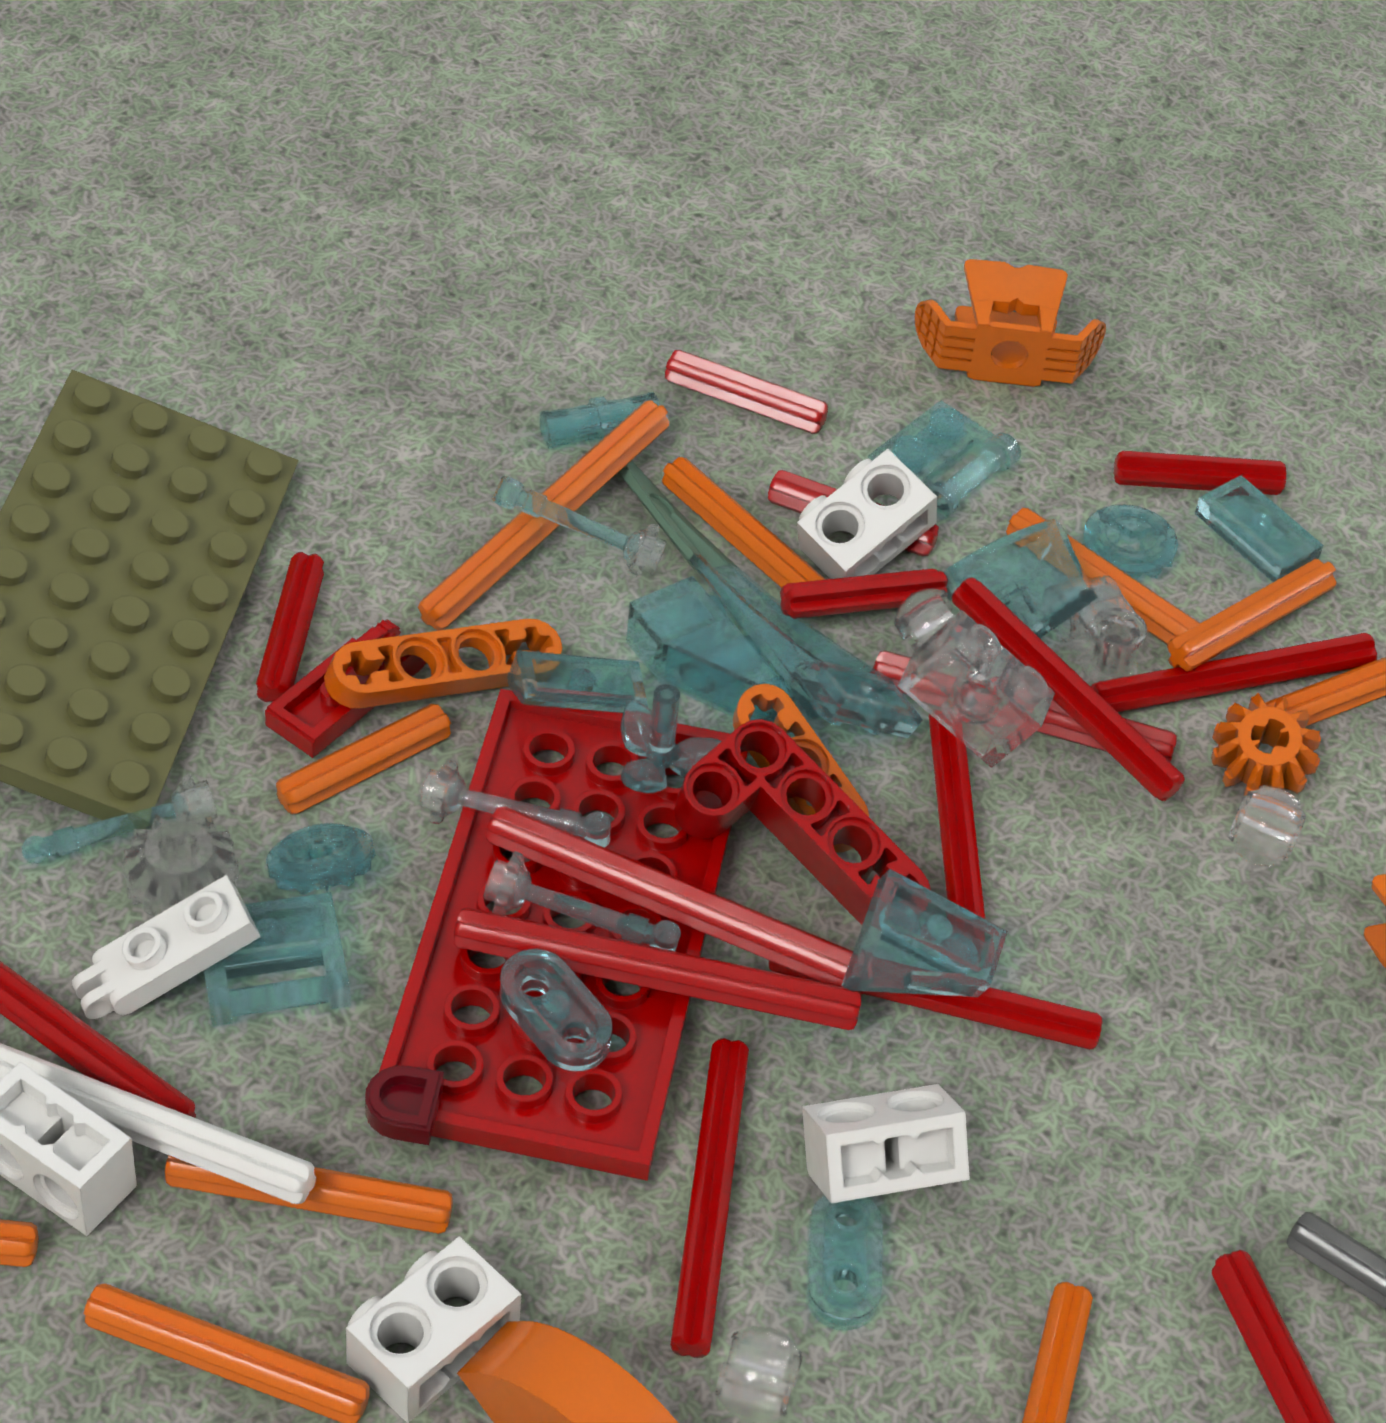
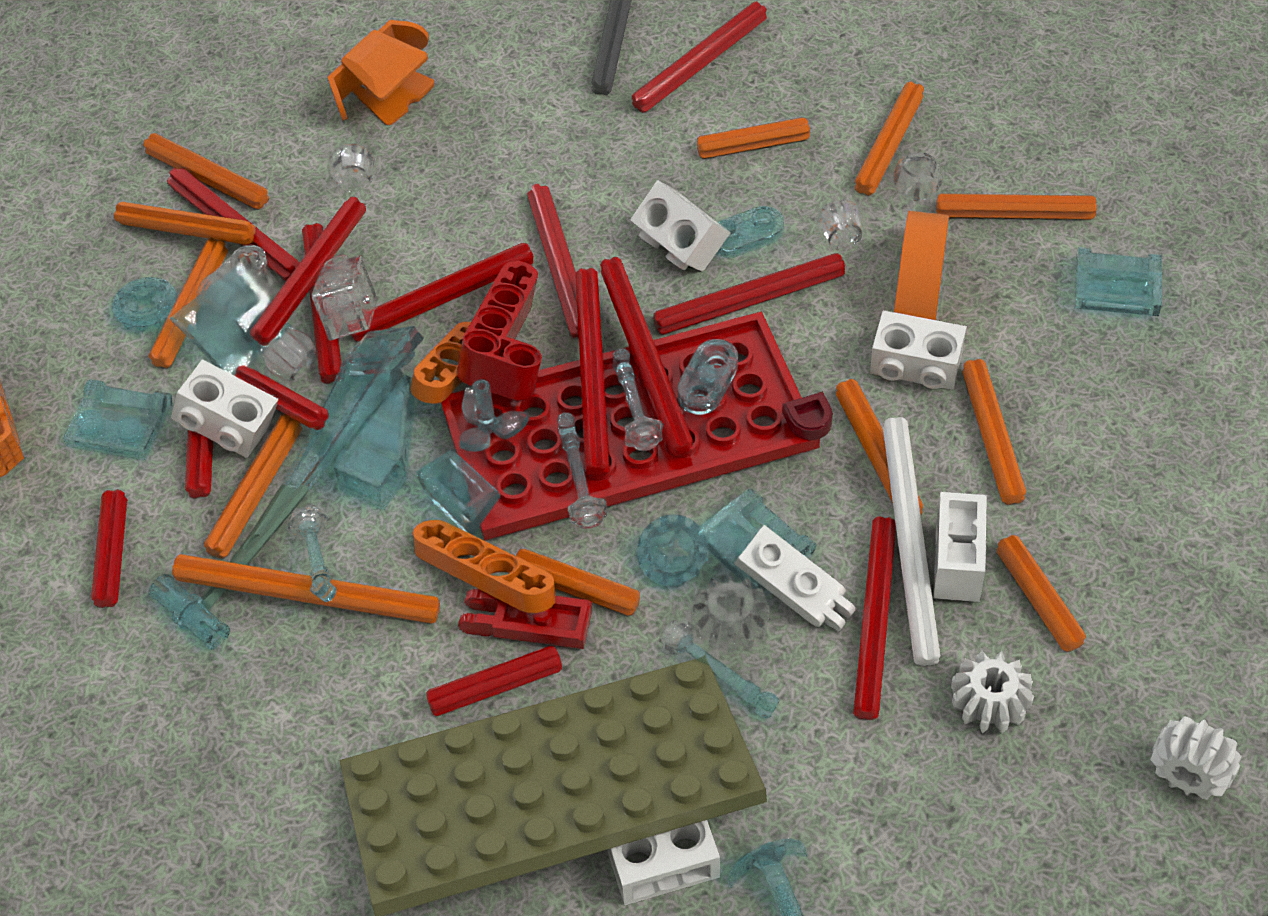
camera: 110 degrees left, 5 degrees up
(922, 944) = (554, 247): clear light blue wing -> none
(1196, 471) = (59, 294): red axle -> none
(1248, 728) = (295, 181): orange gear -> none
(1257, 528) = (100, 248): clear light blue plate -> none

